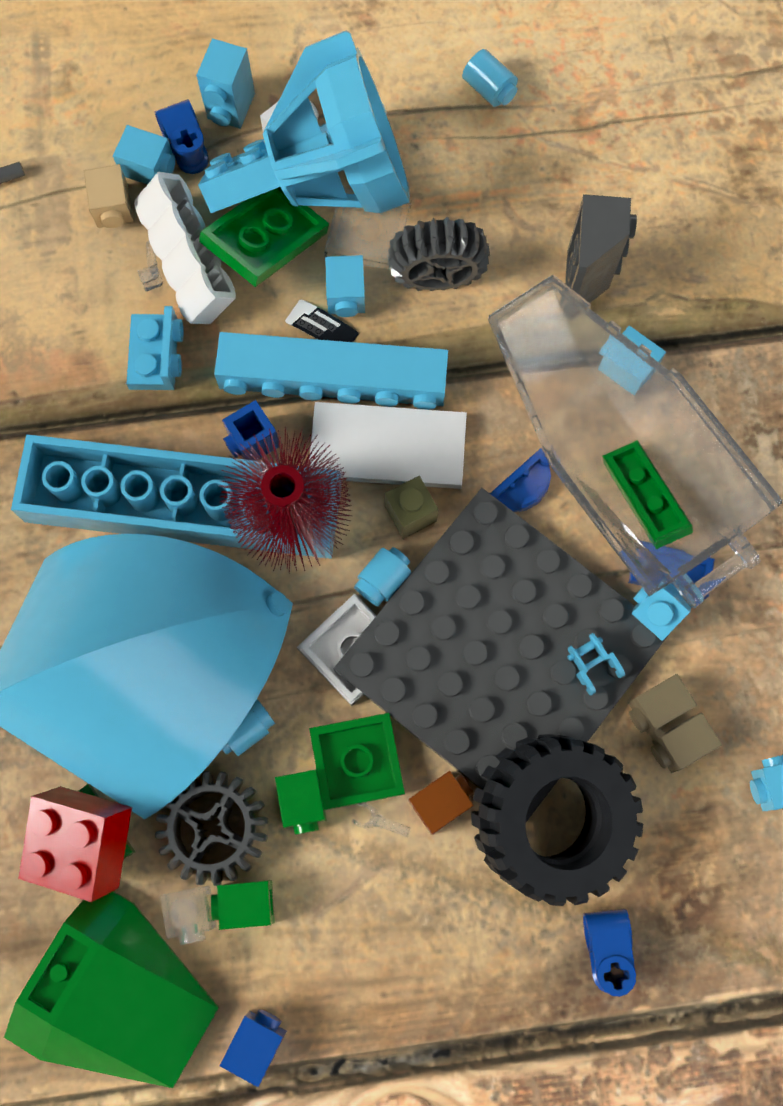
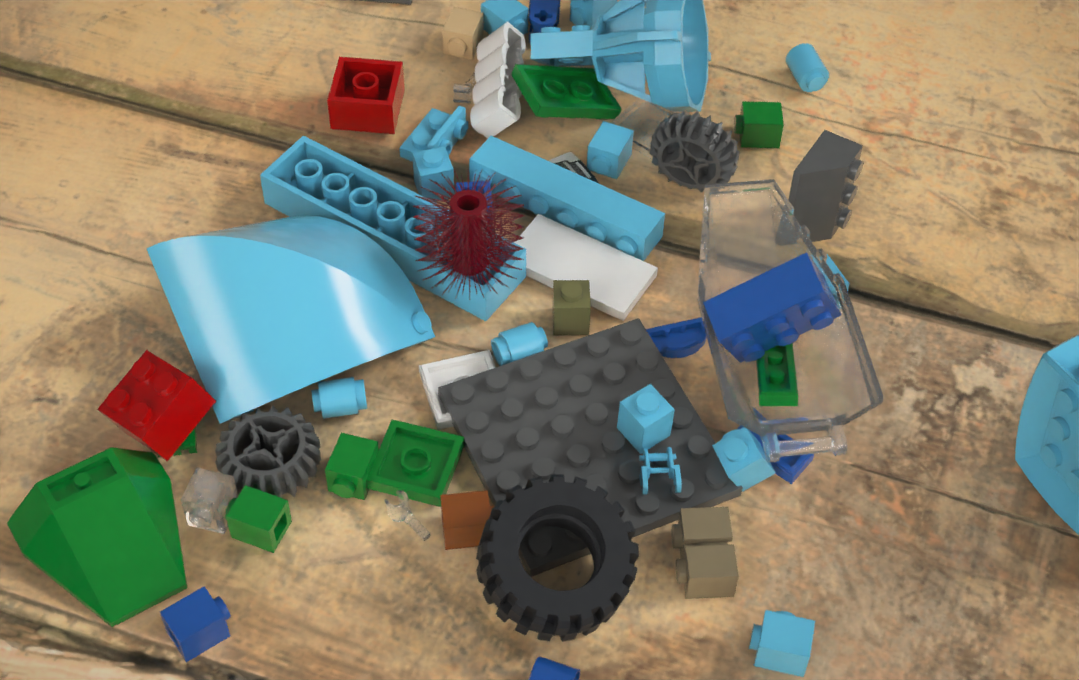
camera: 25 degrees right, 25 degrees down
(55, 336) = (366, 95): none -> red brick
(184, 406) = (430, 165): none -> medium azure brick
(479, 178) = (759, 124): none -> green brick
(558, 618) = (645, 418): none -> medium azure brick
(633, 448) = (772, 309): none -> blue brick

